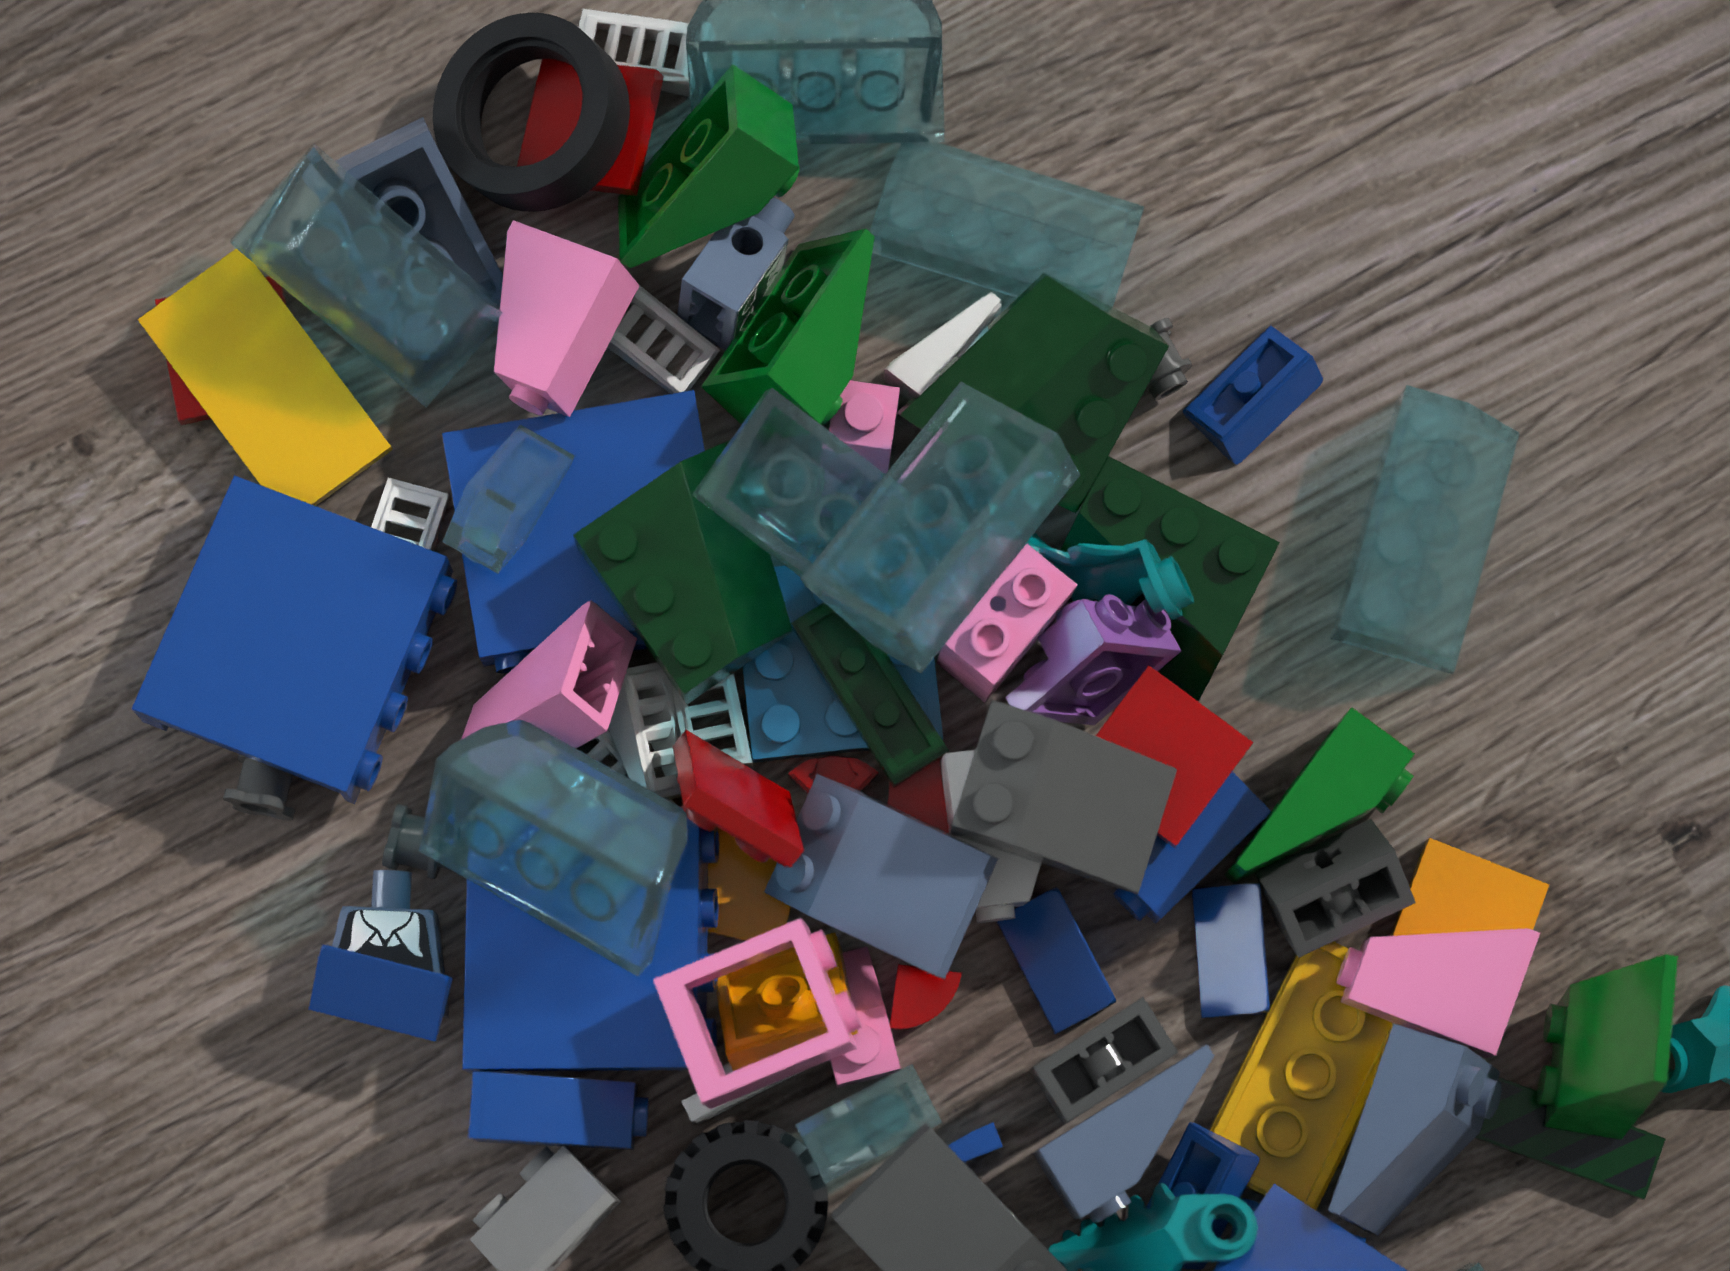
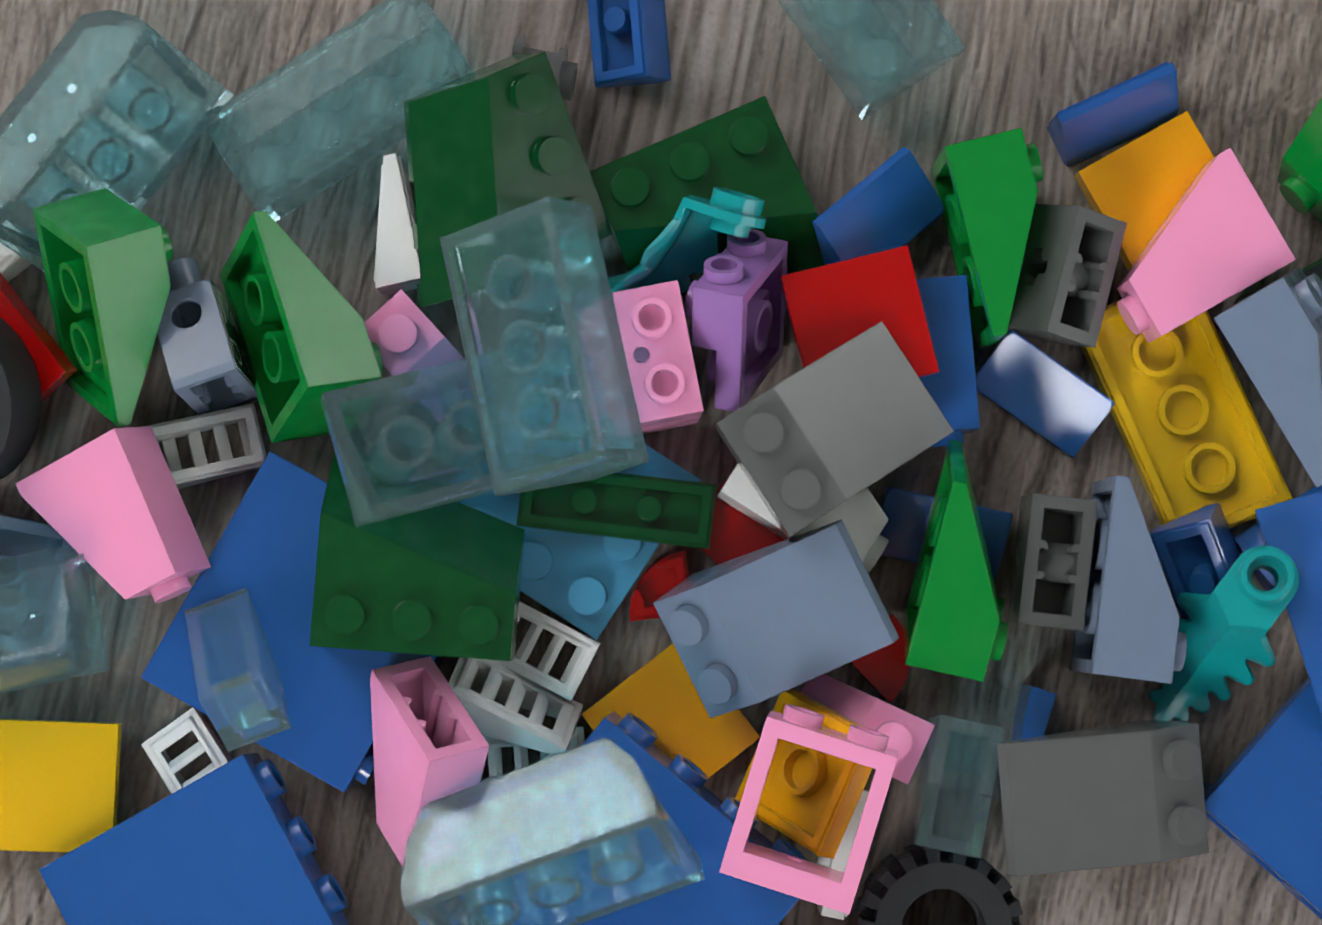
camera: 50 degrees left, 5 degrees up
(737, 800) = (625, 685): red tile -> none
(1010, 1005) = (952, 600): none -> green slope
(1266, 705) = (879, 211): none -> blue slope
(1499, 831) = (1116, 115): none -> blue slope

